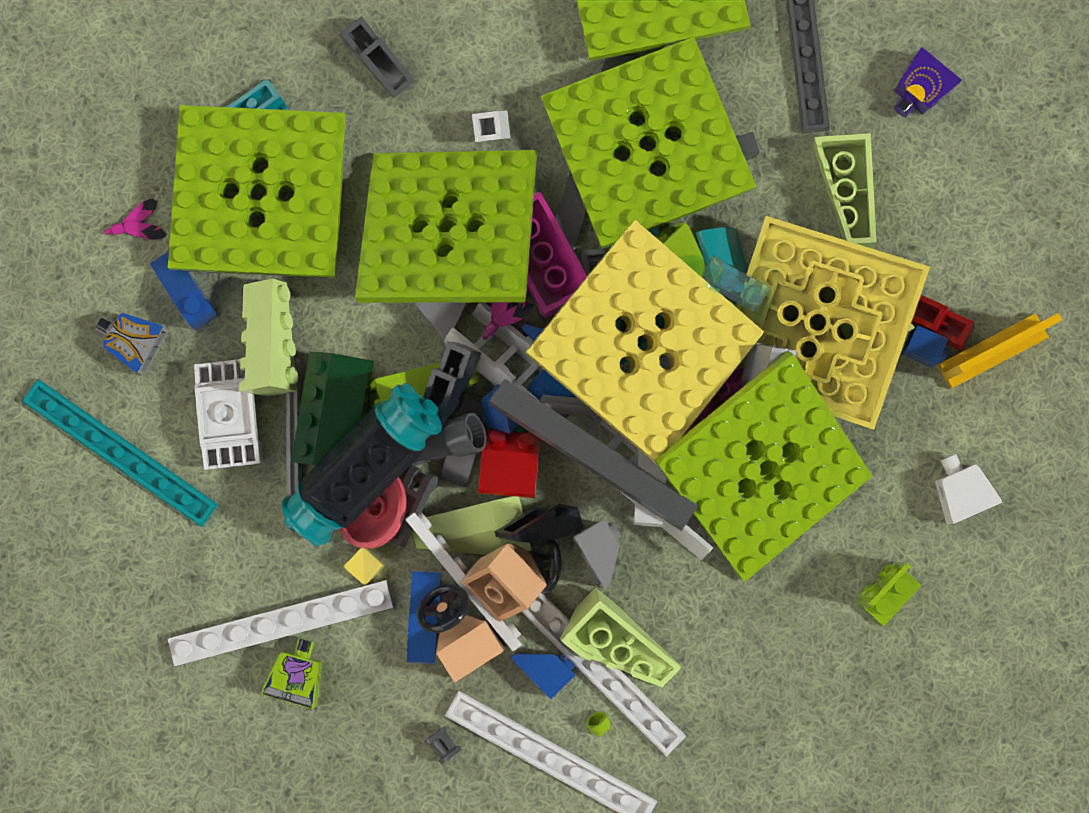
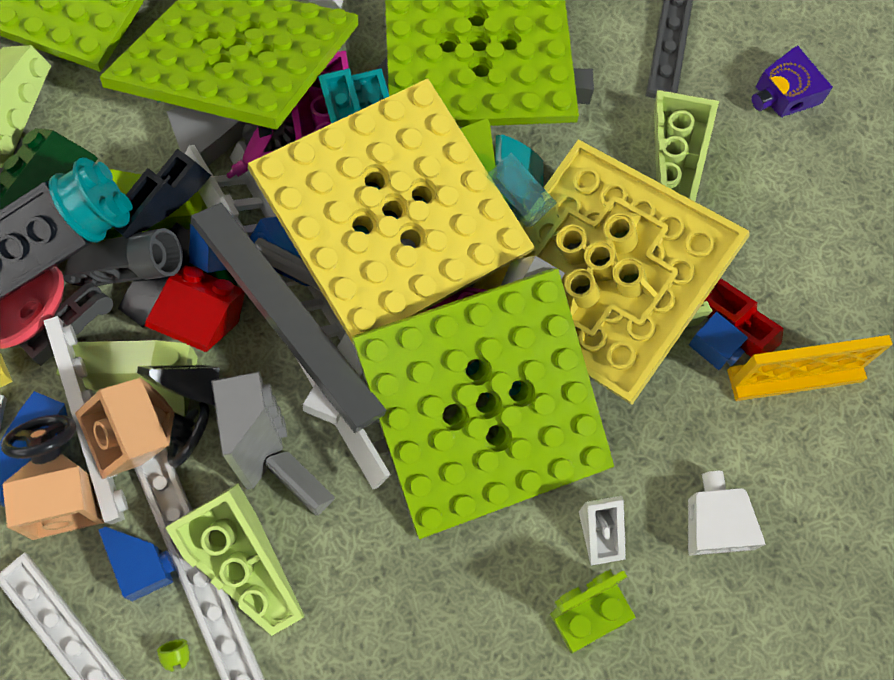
camera: 15 degrees right, 15 degrees down
(571, 240) = (351, 93): none -> teal slope
(641, 569) = (300, 482): none -> light grey slope
(879, 529) = (604, 529): none -> white slope

